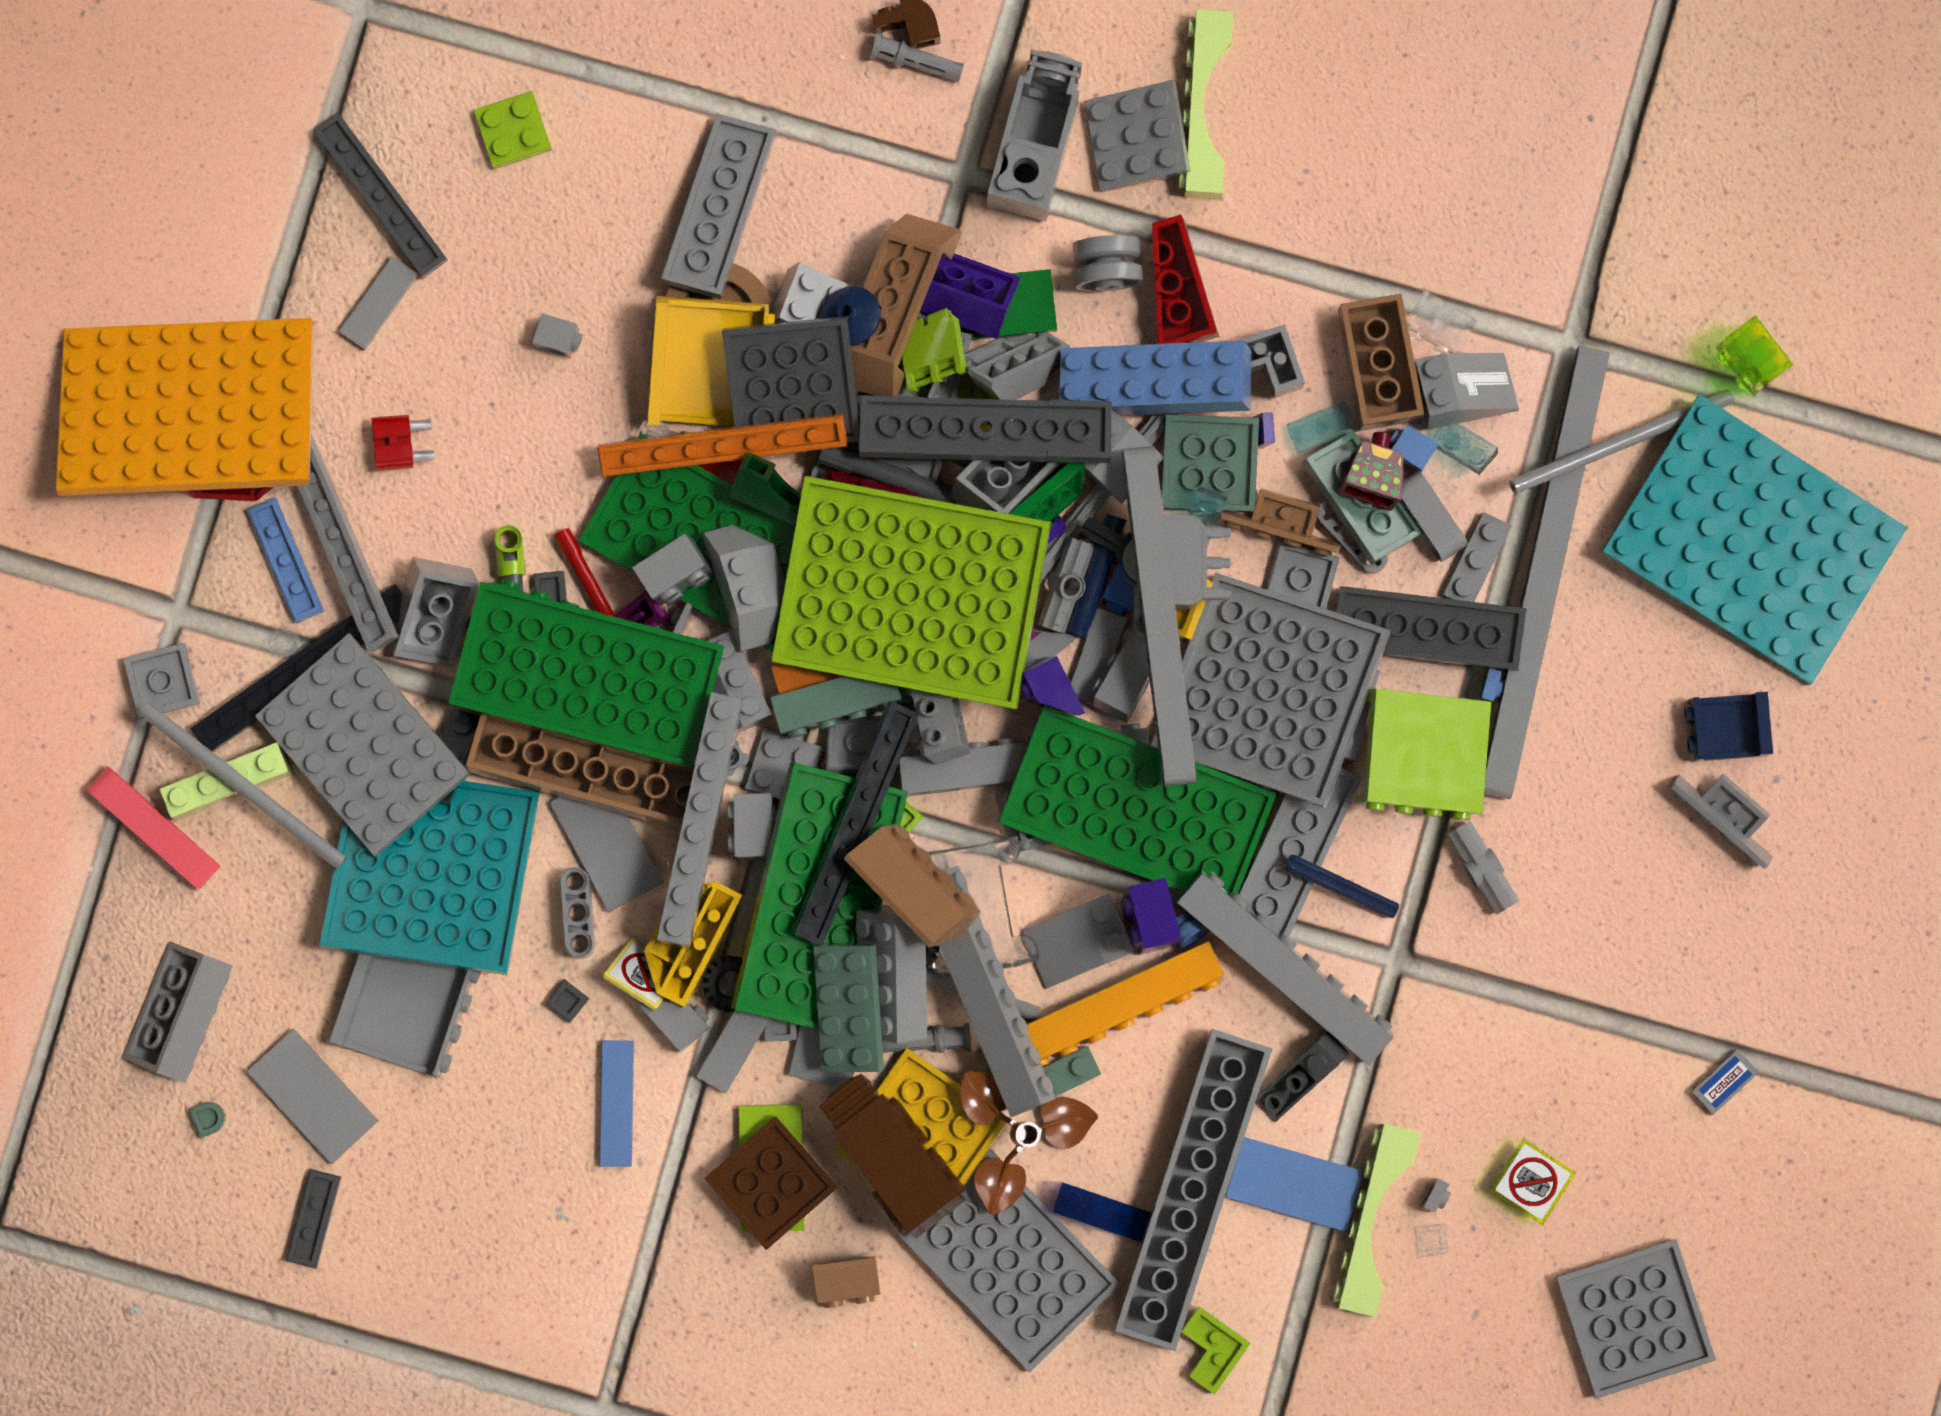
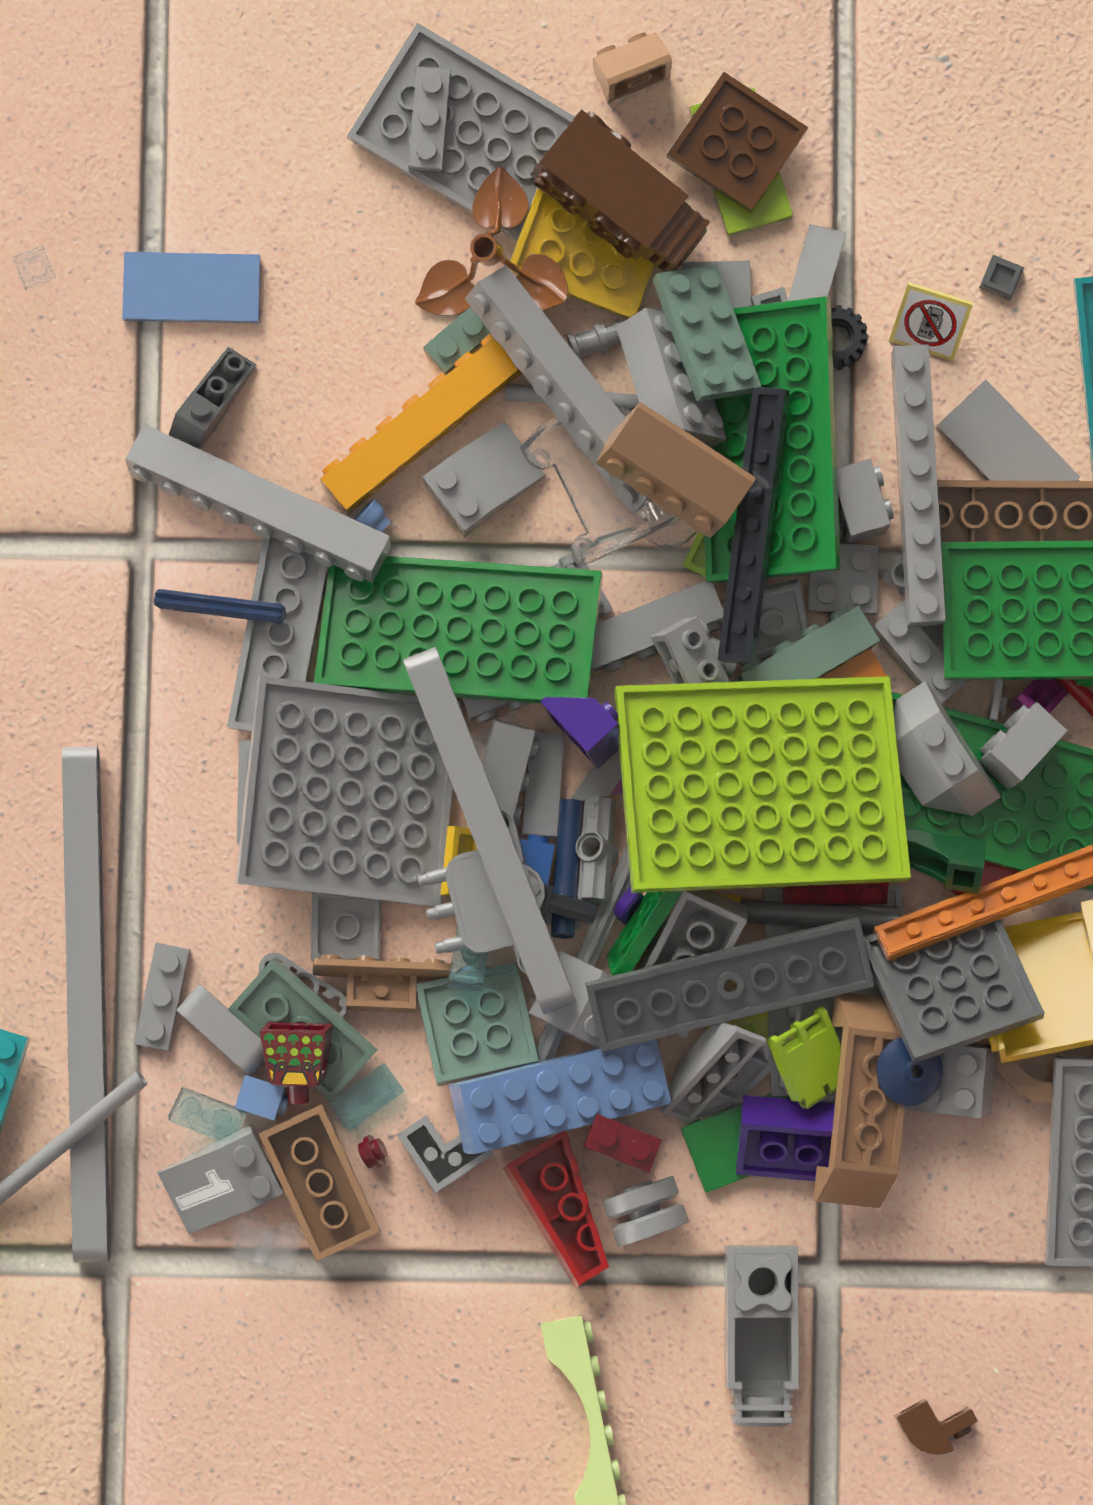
camera: 165 degrees right, 0 degrees up
(570, 899) = (1020, 352): light grey beam -> none
(617, 1103) = (919, 186): medium blue tile -> none
(678, 969) = (893, 324): yellow wedge -> none
(678, 1023) = (878, 283): light grey slope -> none
(901, 54) = (931, 1388): light grey pin -> none
(1042, 1278) = (429, 119): none -> light grey plate
(1101, 1212) = (387, 205): clear blue slope -> none
(1111, 322) = (622, 1143): none -> dark red panel
(1137, 136) = (650, 1365): light grey plate -> none
(1151, 916) = (412, 509): dark purple brick -> none
(1193, 1189) = (296, 250): light grey brick -> none
(1222, 1348) = (224, 98): lime plate -> none
(1266, 429) = (426, 1076): tile -> none
(1328, 378) = (372, 1152): none -> dark red plate
(1361, 1284) = (94, 341): yellowish green arch -> none
(1426, 753) = (165, 767): lime panel -> none
(1437, 1196) = (39, 312): light grey plate -> none
(1440, 627) = (186, 908): dark grey plate -> none
(1483, 867) = (74, 667): light grey piece -> none
(1492, 686) = (112, 862): medium blue plate -> none

